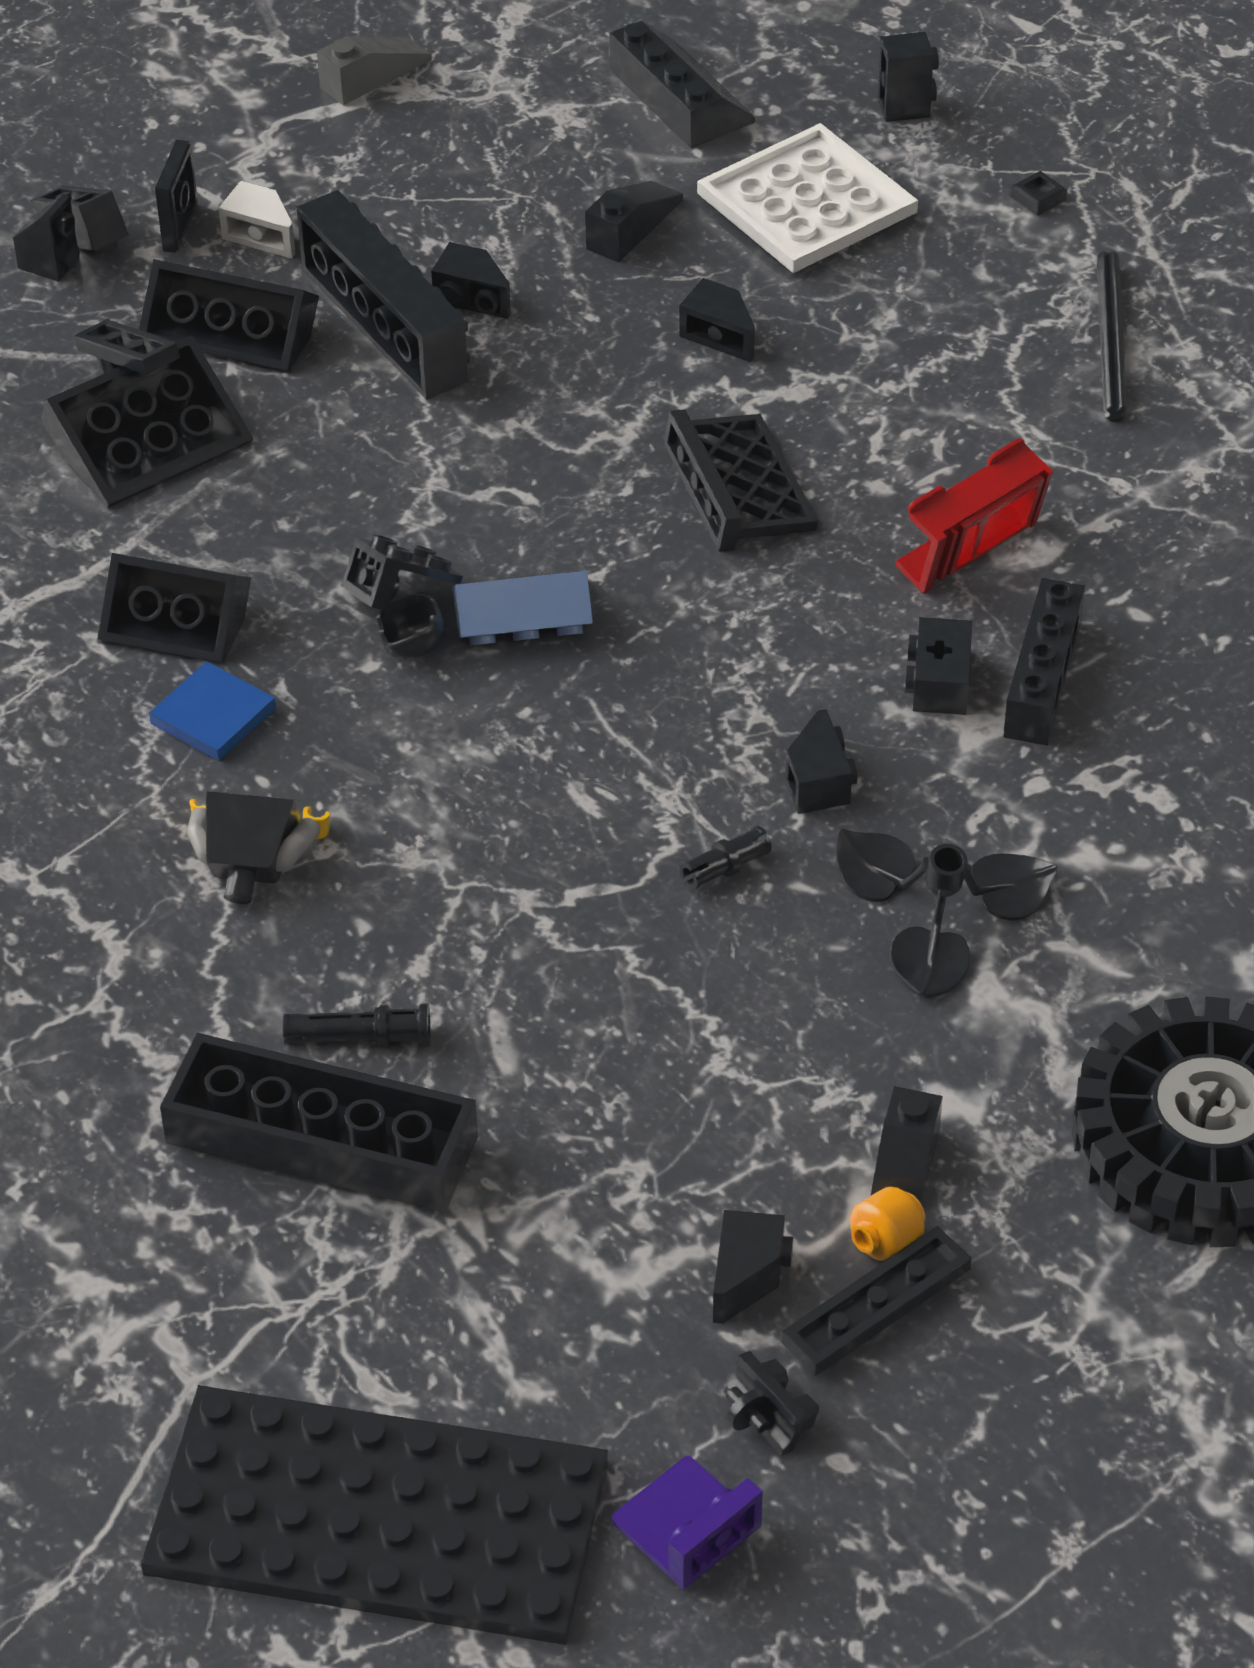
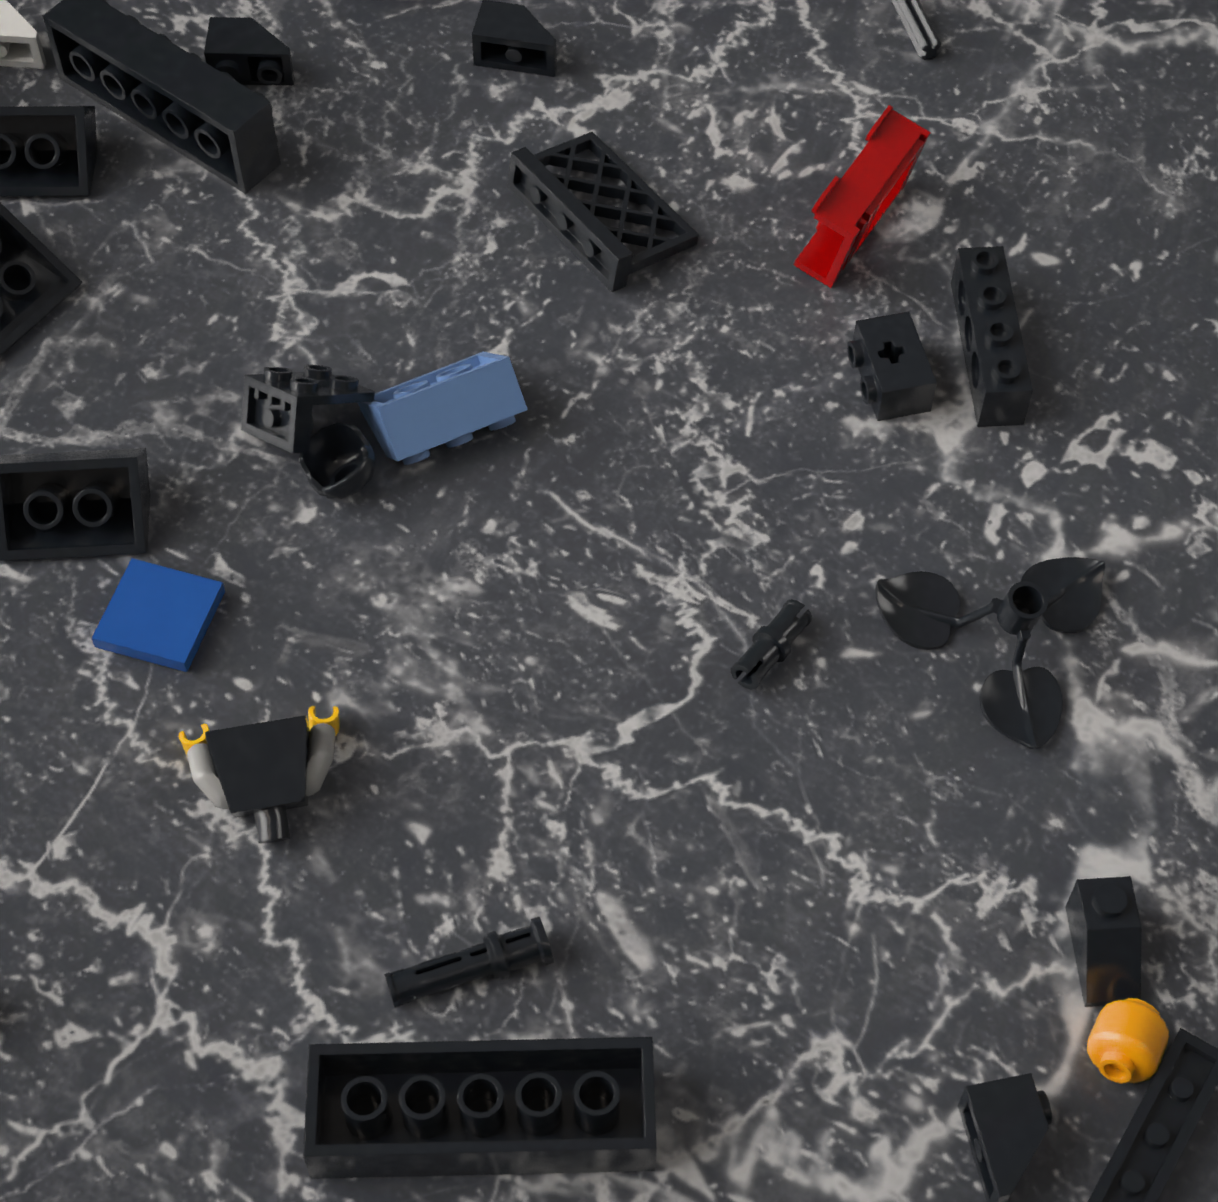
camera: 20 degrees left, 10 degrees up
(817, 767) = (823, 514): black slope -> none

